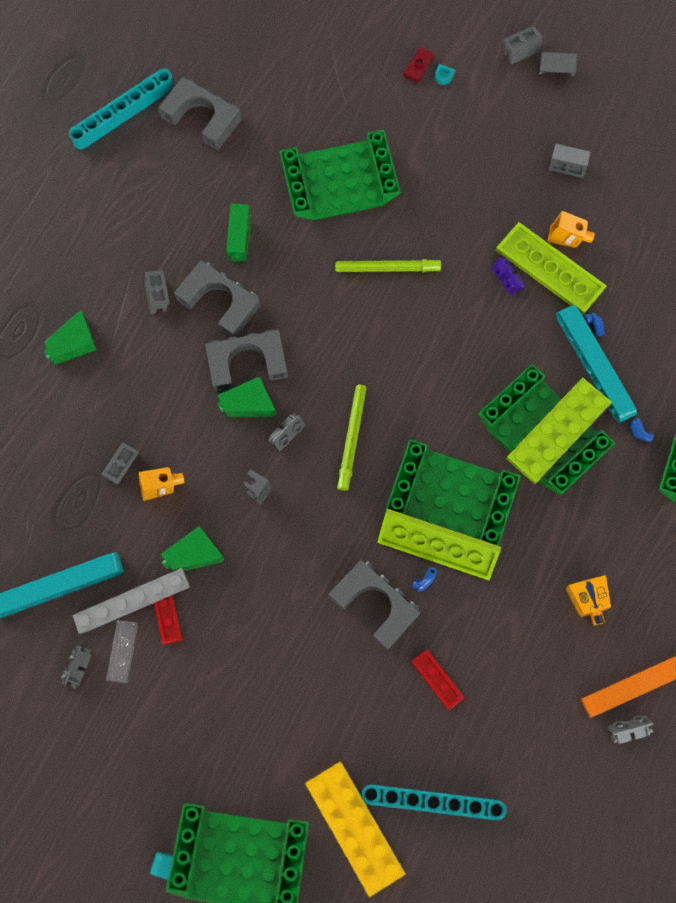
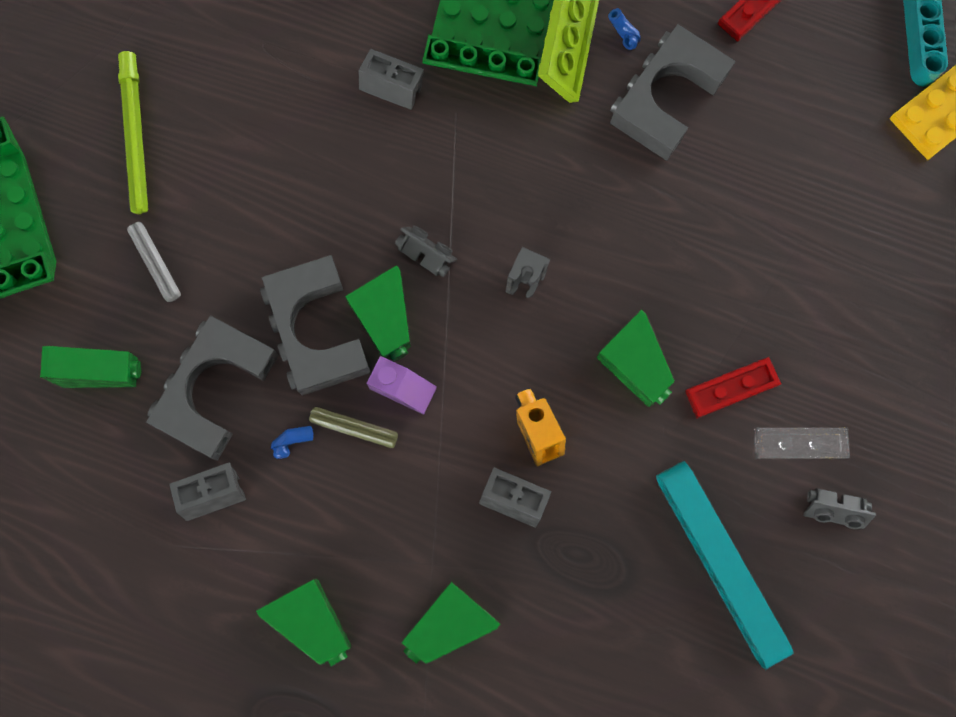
camera: 105 degrees left, 5 degrees up
(53, 417) = (448, 626): none -> green slope
(131, 601) = (728, 441): light grey plate -> none
(181, 340) = (289, 437): none -> blue arm
(181, 377) = (353, 427): none -> olive axle
(201, 406) = (401, 385): none -> medium lavender slope
(302, 272) = (153, 262): none -> light grey axle
(345, 472) = (422, 153): lime axle -> none
(405, 421) = (390, 79): none -> dark grey hinge

